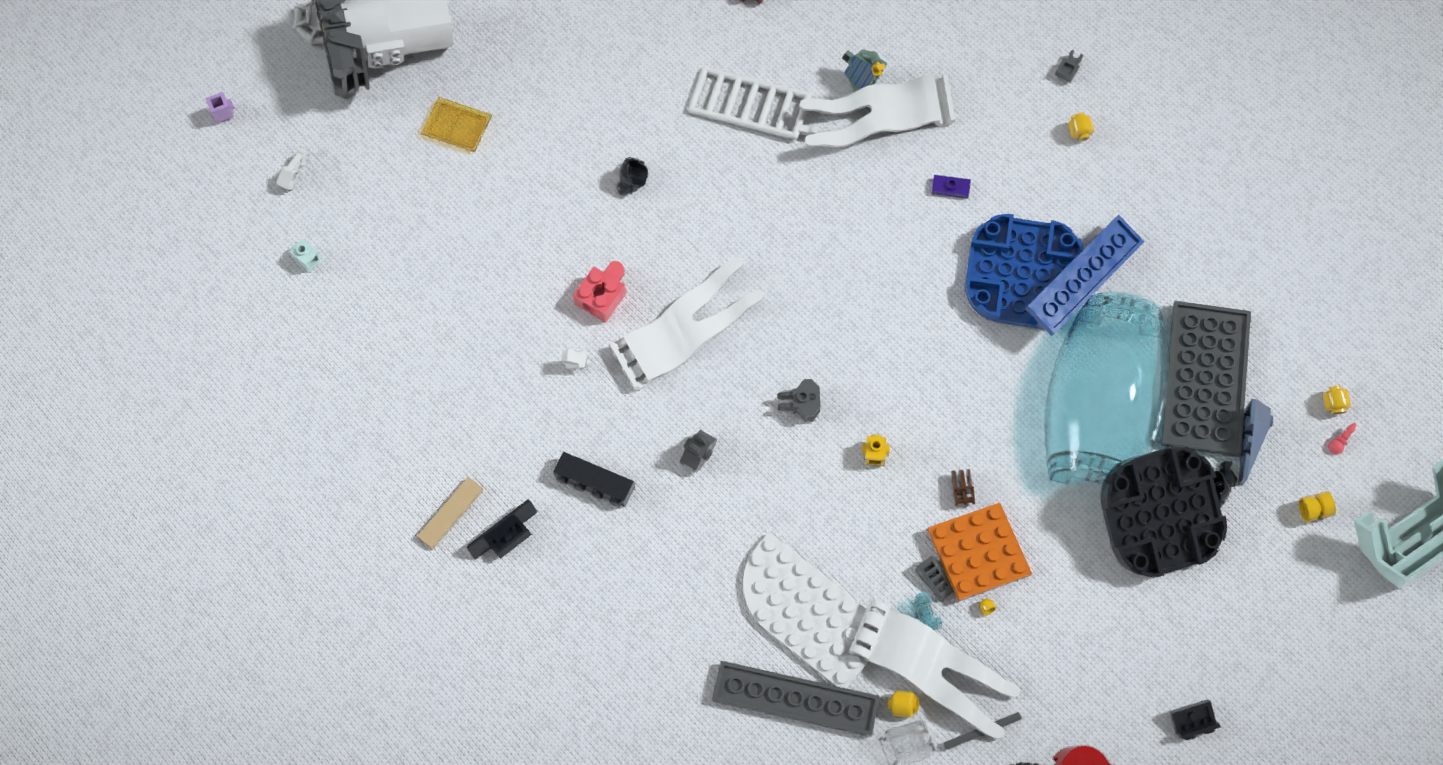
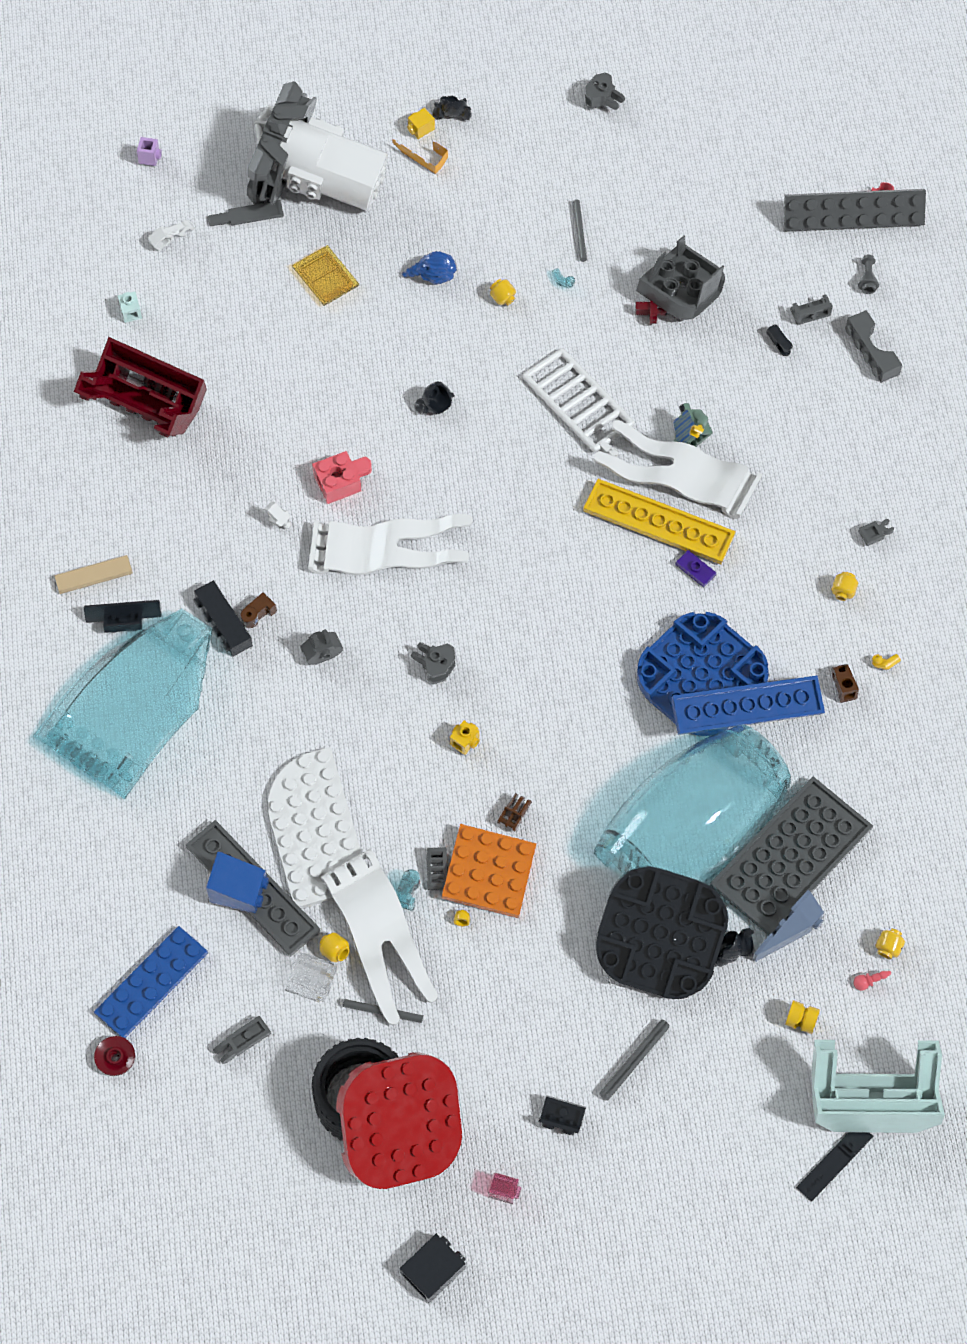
camera: 30 degrees right, 5 degrees down
(347, 111) = (247, 214): none -> dark grey piece
(382, 319) = (150, 397): none -> dark red wedge
(545, 62) = (434, 267): none -> blue hair
(569, 605) = (131, 701): none -> clear light blue windscreen
(617, 453) = (257, 609): none -> reddish brown leg
(619, 48) = (502, 292): none -> yellow head
(663, 9) = (562, 281): none -> clear light blue arm
(786, 705) = (236, 883): none -> blue slope
(893, 165) = (659, 521): none -> yellow plate
(1139, 206) = (845, 683): none -> reddish brown leg
(1157, 171) = (885, 664): none -> yellow arm
(1213, 632) = (634, 1060): none -> dark grey axle
(1426, 612) = (833, 1163): none -> black piece

